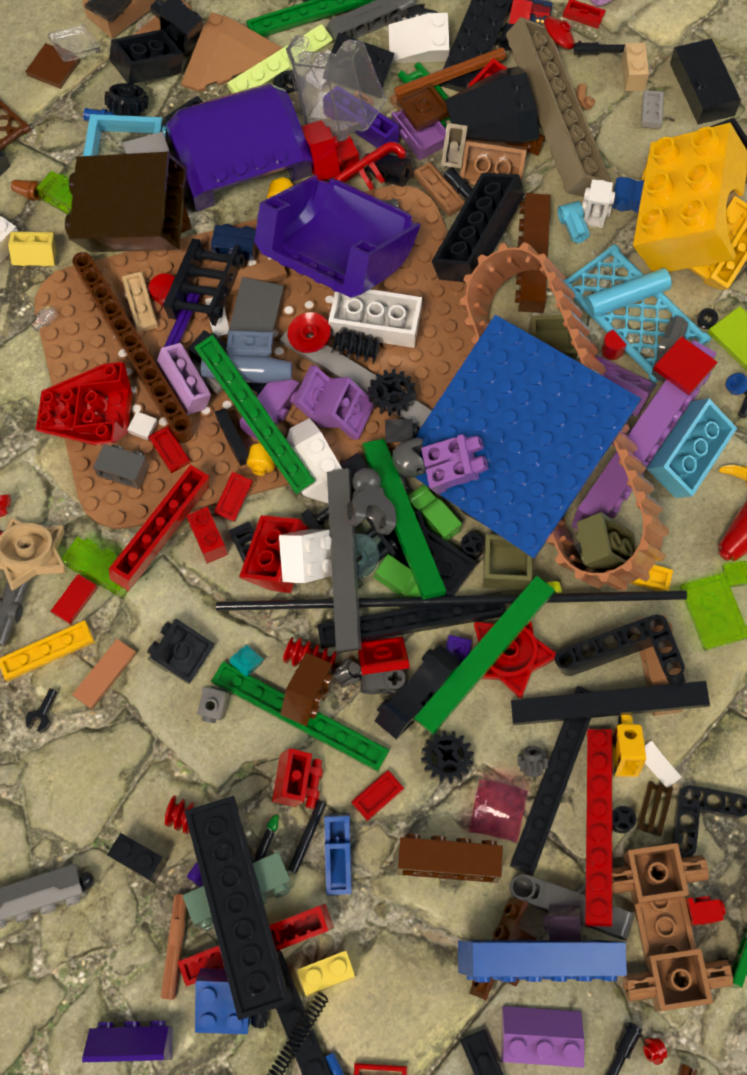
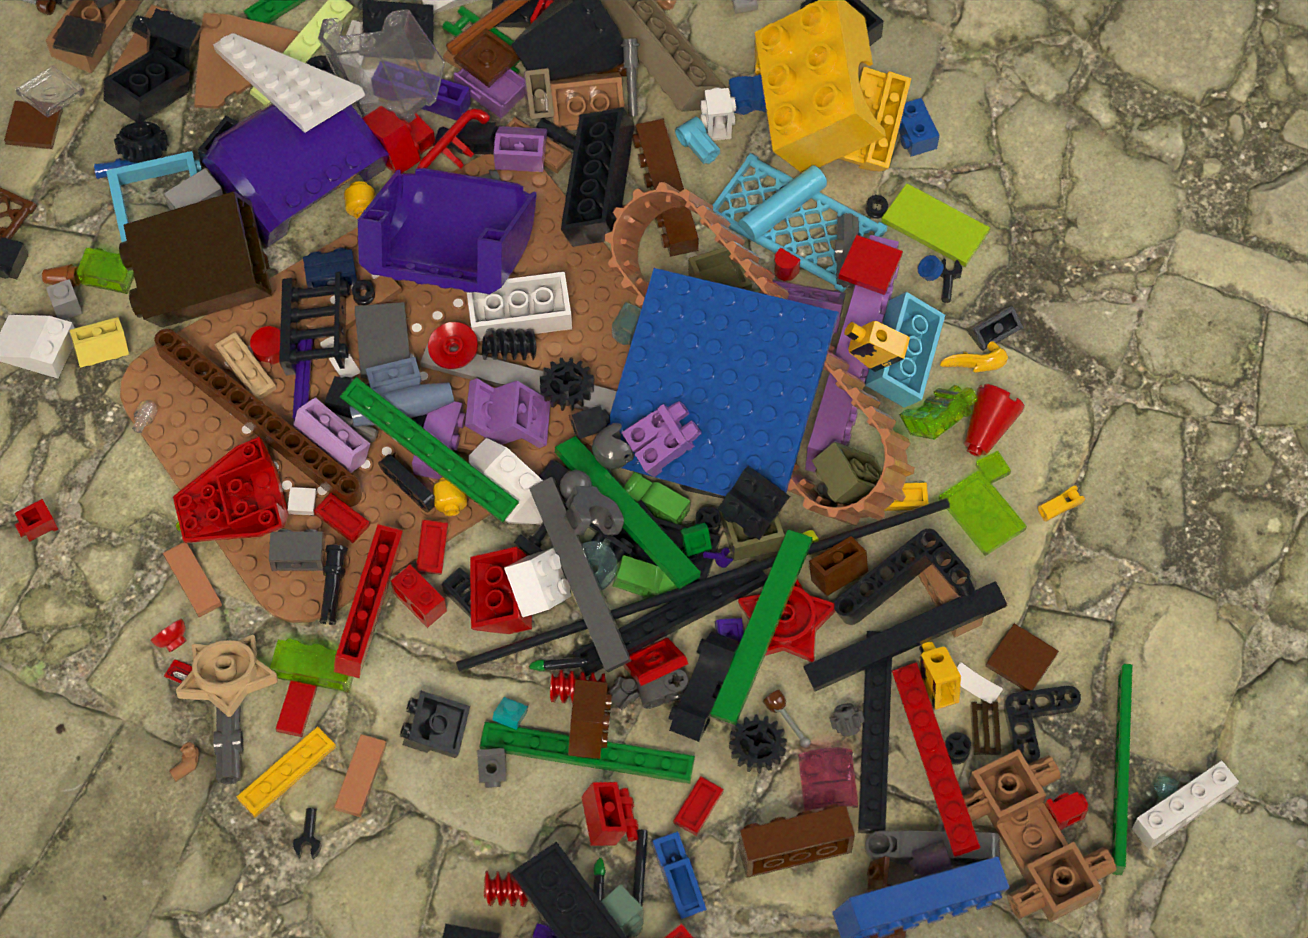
camera: 20 degrees left, 5 degrees down
(20, 208) = (64, 300): none -> light grey brick
(33, 464) = (192, 579): none -> nougat tile
(143, 494) = (333, 573): none -> black pin
(250, 263) = (357, 289): none -> black bush
(252, 82) = (291, 85): none -> white wing
(300, 630) = (556, 664): none -> black piece
(423, 187) = (520, 149): none -> medium lavender slope
(454, 559) = (696, 539): none -> green tile
(458, 355) = (625, 324): none -> clear light blue brick
(471, 580) = (720, 558): none -> dark purple hand
(476, 726) = (776, 703): none -> hinge
(512, 544) = (753, 503): none -> black plate
(538, 142) = (630, 64): none -> dark grey pin
(571, 621) = (838, 566): none -> reddish brown brick
(667, 437) = (876, 344): none -> yellow torso
(704, 512) = (939, 412): none -> clear neon green hips
(708, 755) = (1022, 658): none -> reddish brown tile

